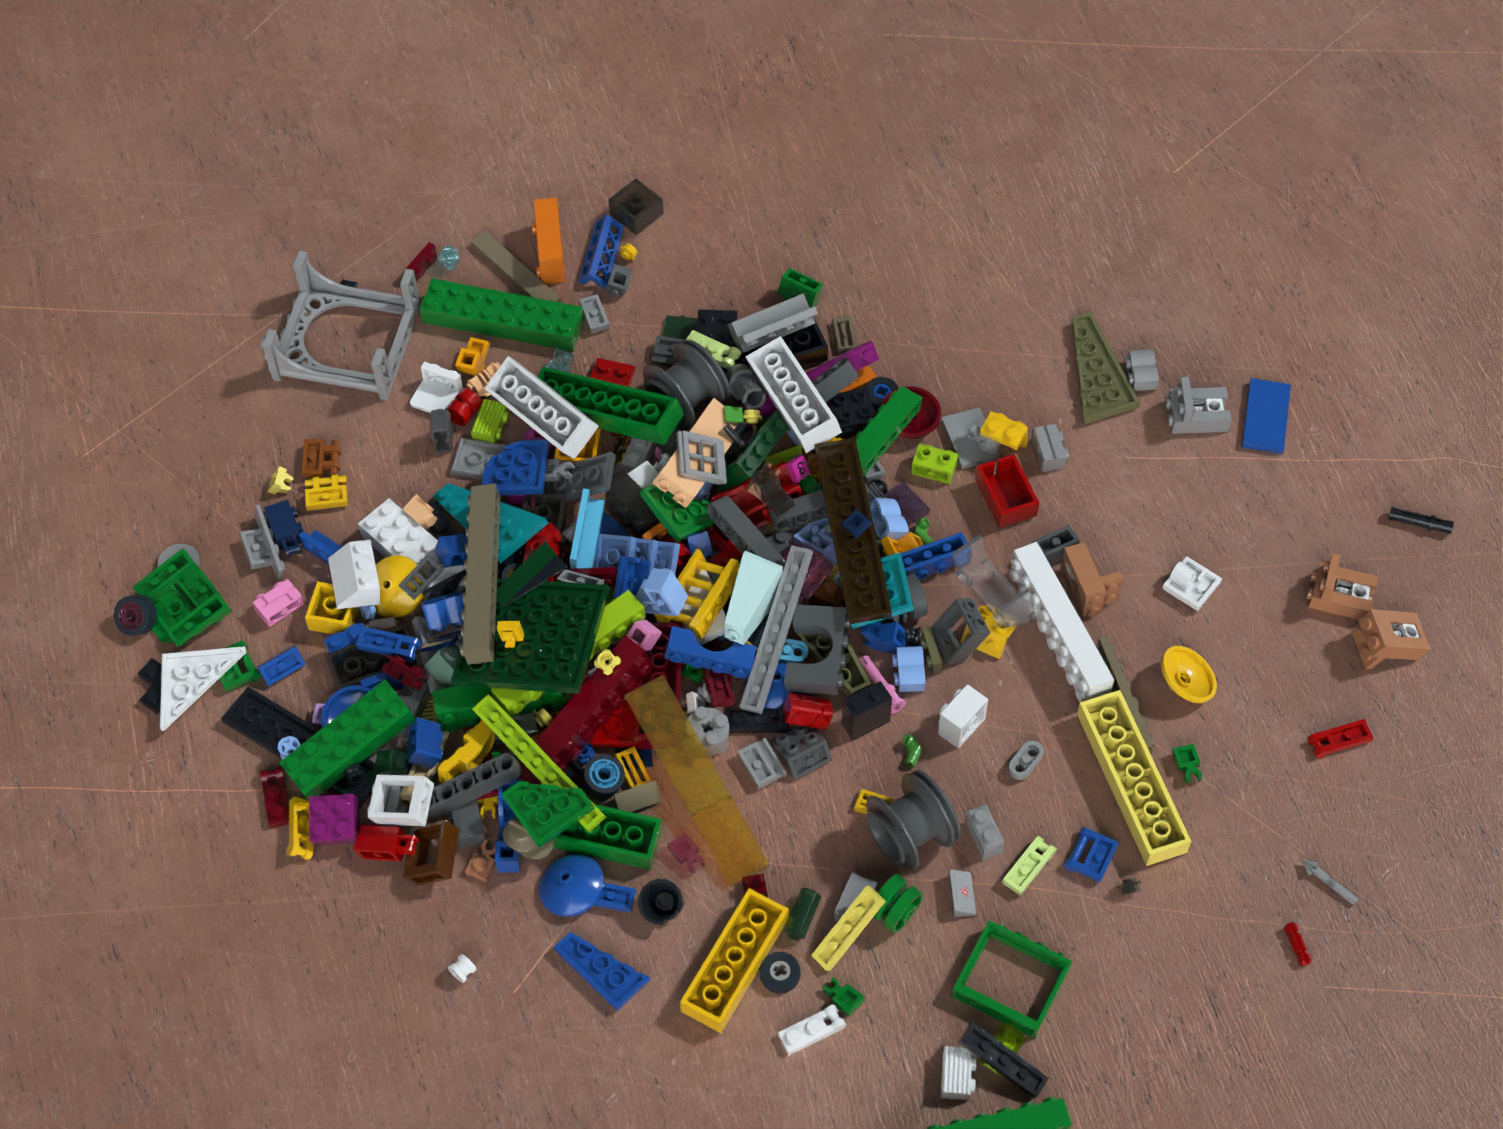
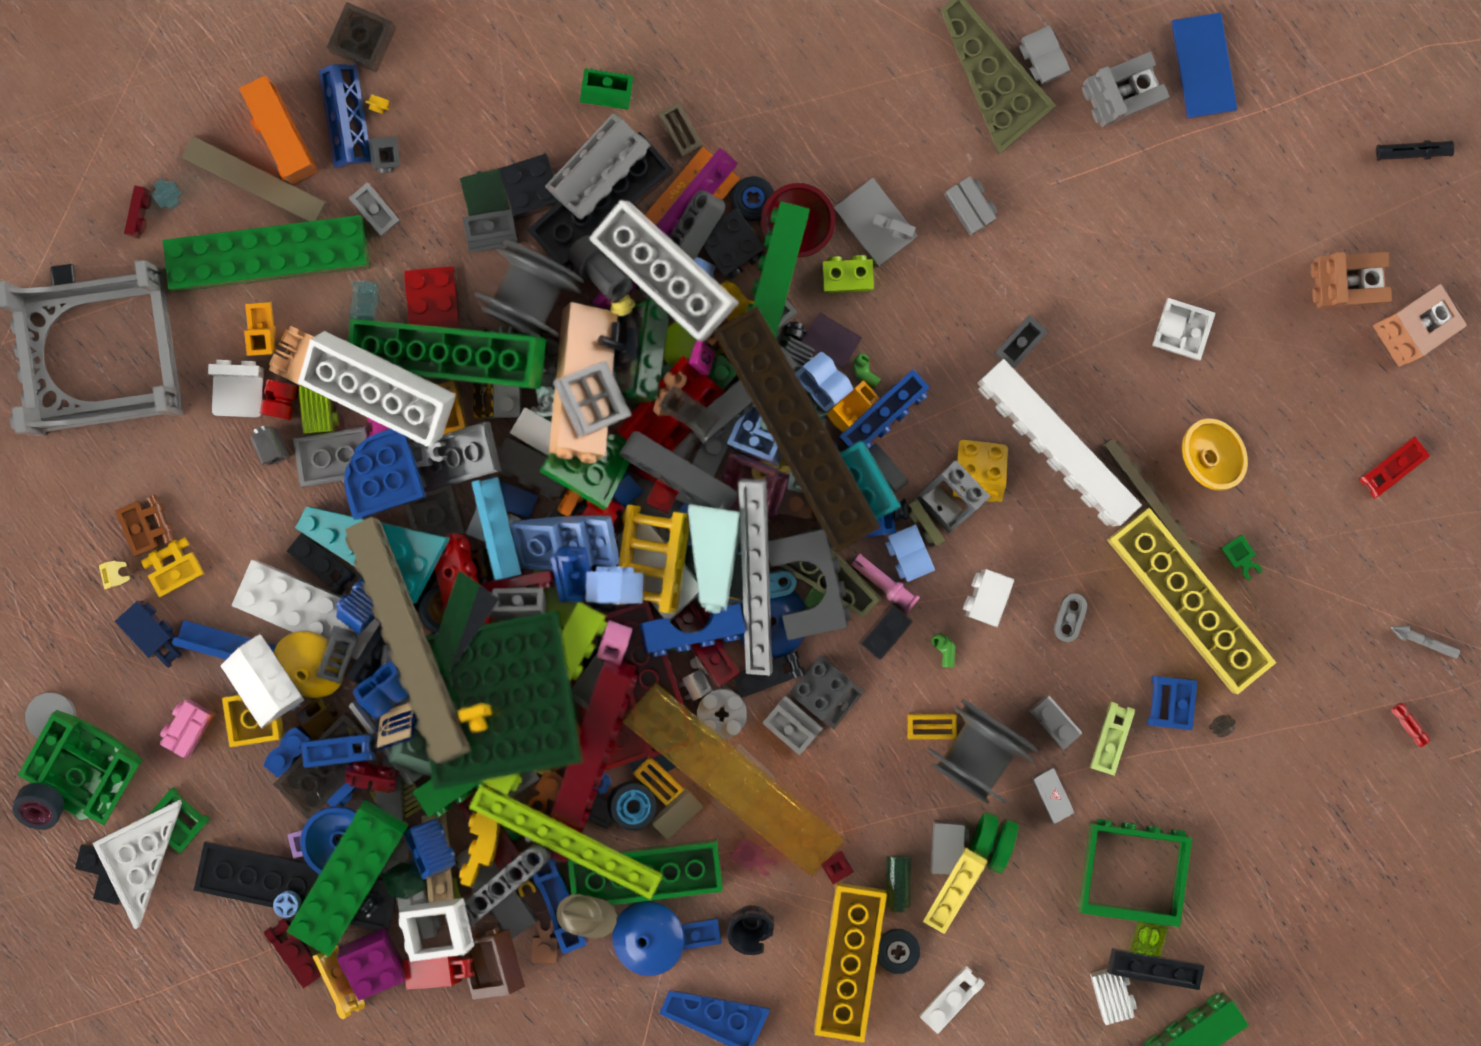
camera: 20 degrees left, 30 degrees up
(260, 547) = (131, 667): light grey bracket -> none
(281, 665) = (227, 802): blue plate -> none
(420, 512) = (295, 564): light nougat brick -> none
(546, 808) = (598, 895): green plate -> none
(603, 657) = (589, 712): light yellow plate -> none
(716, 349) = (538, 226): yellowish green plate -> none
(733, 414) = (601, 313): bright green piece -> none
(807, 711) = (821, 653): red brick -> none
(844, 998) = (975, 956): green plate -> none
(856, 523) = (802, 428): dark blue tile -> none
(991, 586) = (974, 429): clear windscreen -> none
(1005, 430) = (917, 216): yellow bracket -> none
(1007, 491) = (942, 287): red piece -> none
(1084, 582) = (1068, 379): nougat brick -> none

